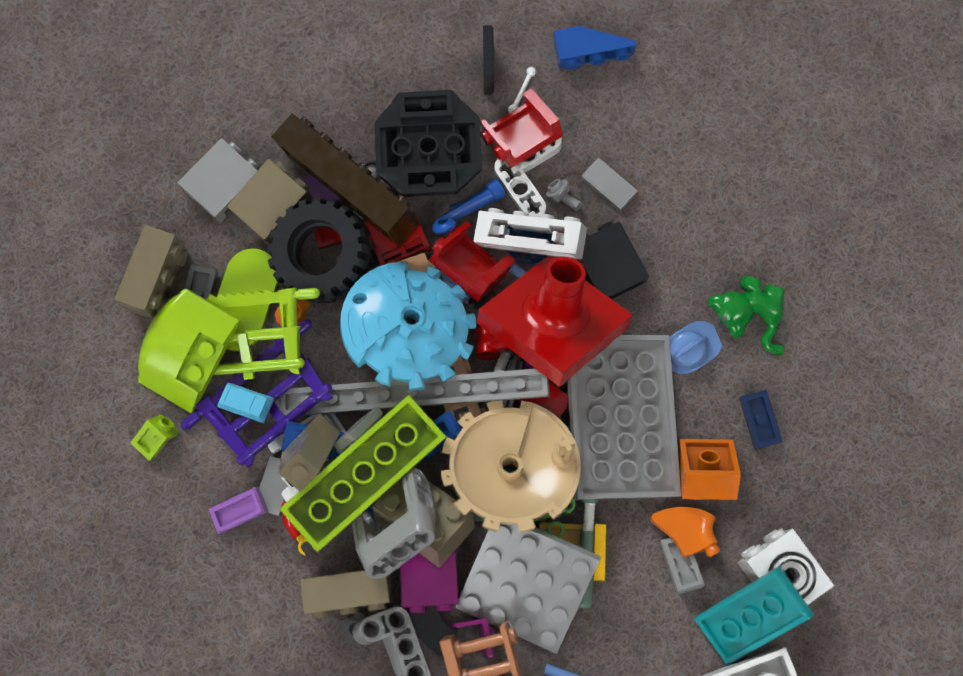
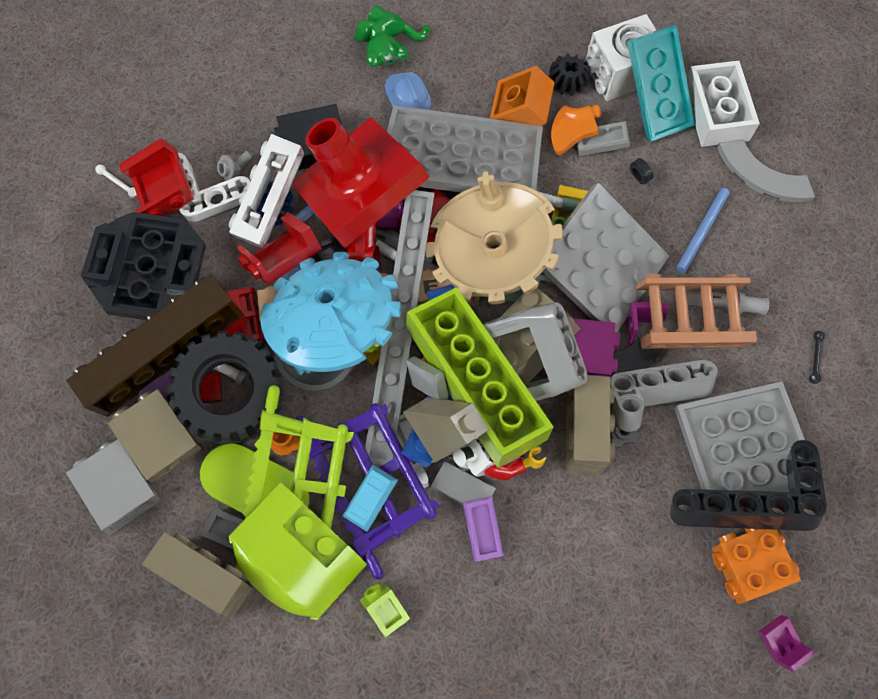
camera: 85 degrees left, 10 degrees down
(488, 58) = (75, 194): black tile -> none
(490, 193) = (213, 225): blue plant -> none
(584, 45) = (91, 115): blue slope -> none
(609, 184) = (236, 126): light grey tile -> none
(650, 610) = (641, 171): none -> black tile
(745, 515) = (569, 74): none -> black gear
(760, 419) = (486, 54): dark blue plate -> none

